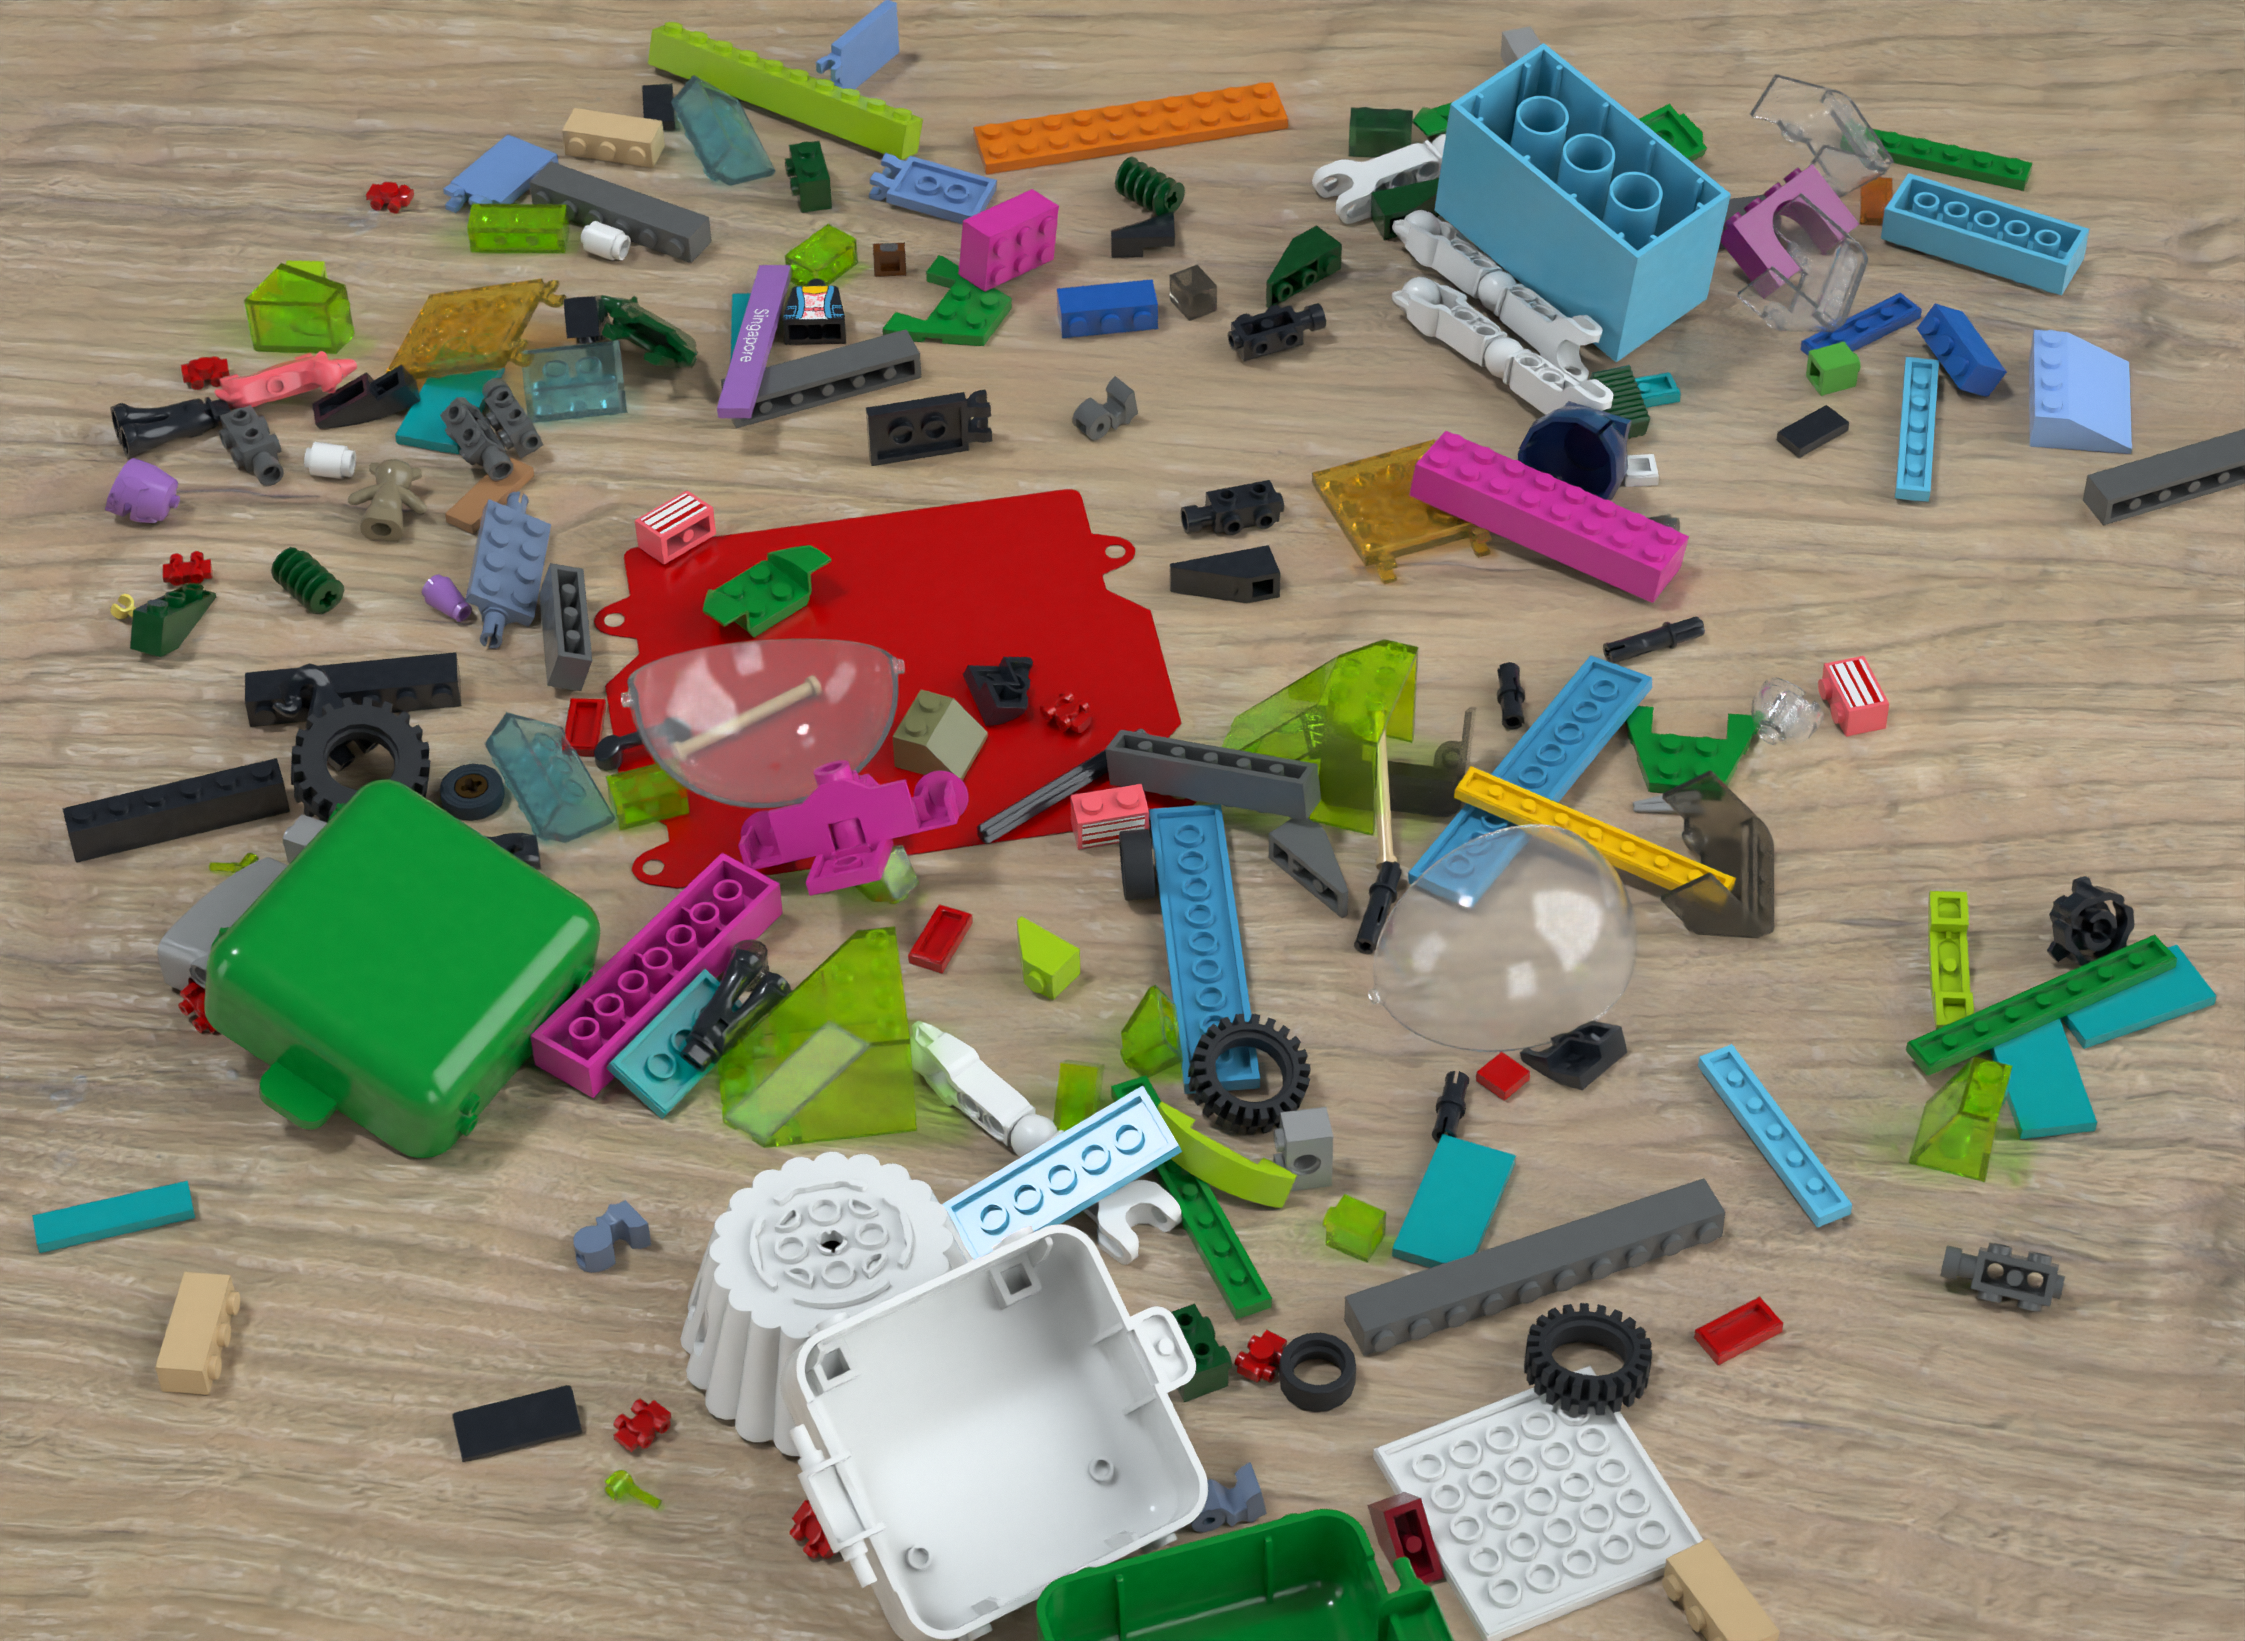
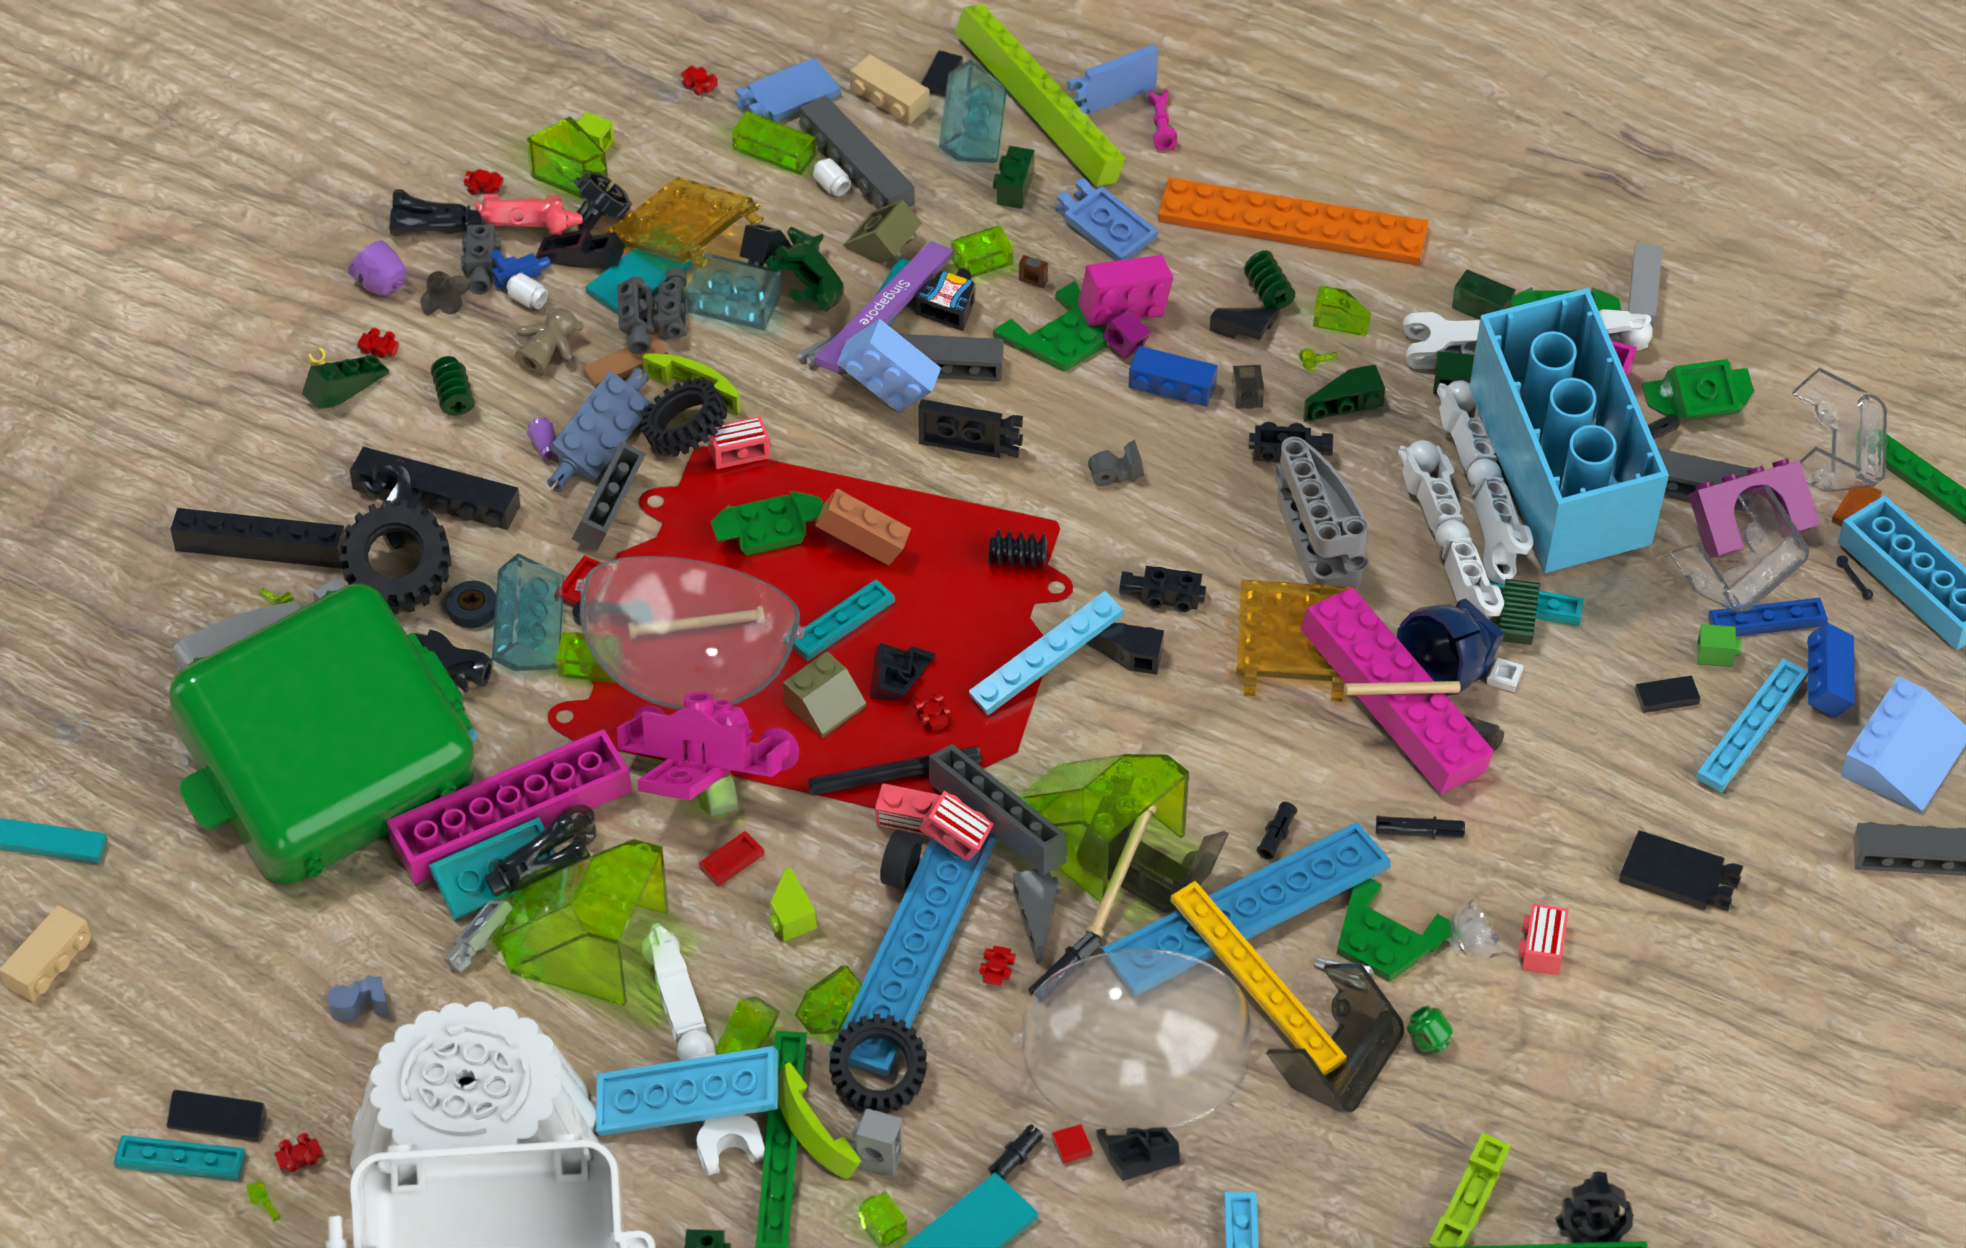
camera: 25 degrees right, 5 degrees up
(232, 494) = (444, 293): none -> clear smoke plate
(298, 440) = (511, 266): none -> blue piece
(362, 339) = (600, 201): none -> black piece
(500, 1486) = (180, 1157): none -> teal tile
(583, 479) = (668, 367): none -> lime slope
(618, 535) = (693, 431): none -> black tyre
(700, 274) = (884, 232): none -> olive slope
(701, 412) = (810, 353): none -> light grey piece
(704, 1117) = (476, 934): none -> light grey hinge
(805, 389) = (889, 365): none -> light blue brick
(878, 556) = (862, 527): none -> nougat brick
(917, 646) = (843, 619): none -> teal tile
(943, 92) = (1163, 138): none -> dark pink piece
(1042, 280) = (1126, 333): none -> magenta brick
(1057, 522) = (1018, 549): none -> black piece
(1156, 611) = (1046, 653): none -> medium azure plate
(1181, 806) = (956, 826): none -> brick
(1238, 245) = (1310, 359): none -> clear neon green hand
(1239, 193) = (1340, 311): none -> clear neon green slope
(1305, 936) = (997, 969): none -> red piece
(1362, 378) = (1321, 516): none -> light grey panel
(1564, 504) = (1401, 688): none -> tan bar
(1801, 821) = (1429, 1029): none -> green head
(1897, 255) = (1842, 561): none -> black hinge
(1941, 587) = (1680, 872): none -> black tile

